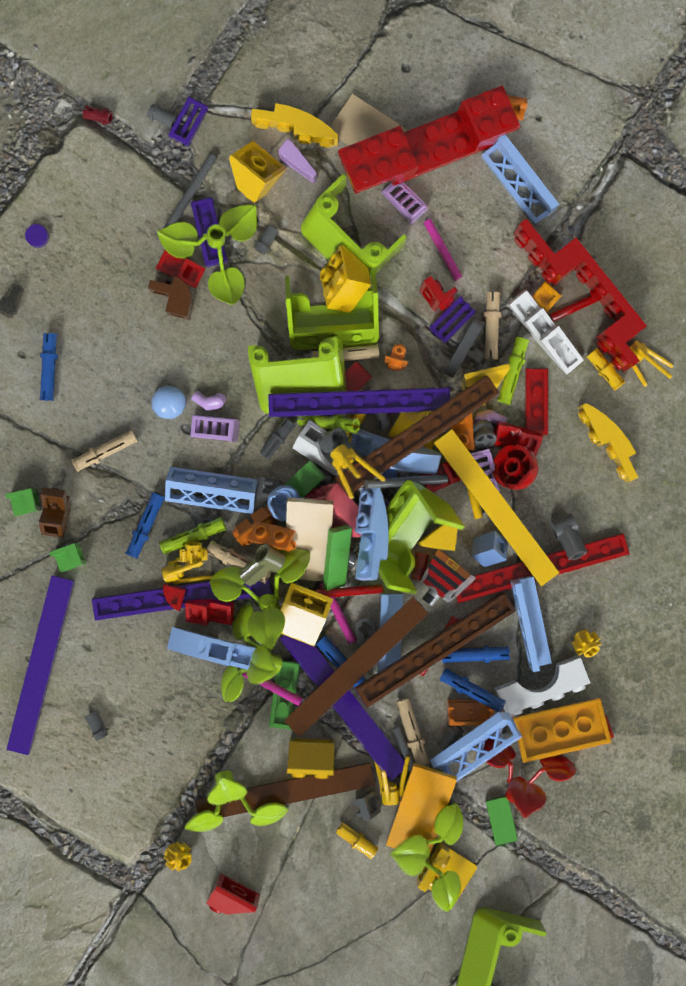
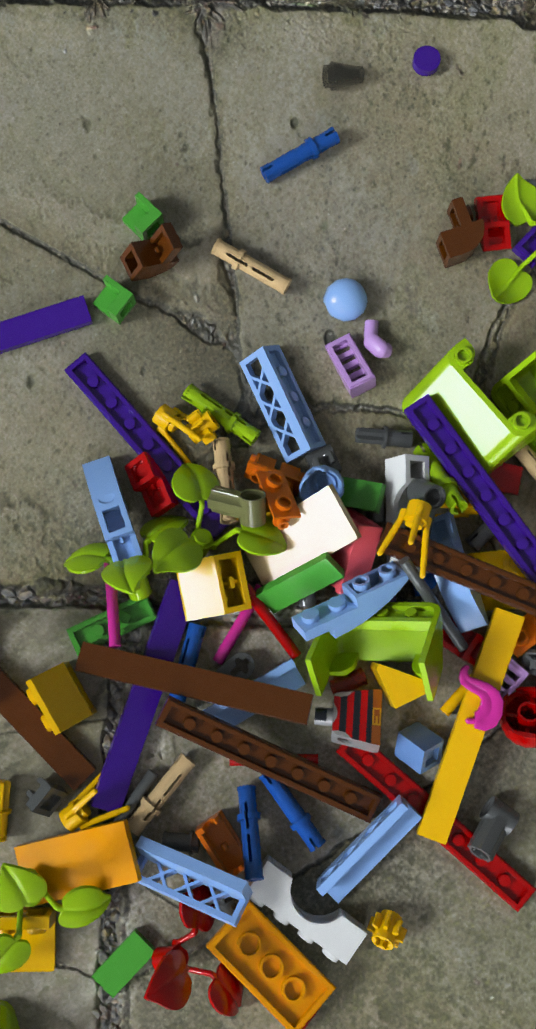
camera: 55 degrees right, 5 degrees down
(141, 533) = (200, 357): blue pin -> none
(174, 596) = (143, 436): red tile -> none
(494, 489) = (490, 705): none -> dark pink piece

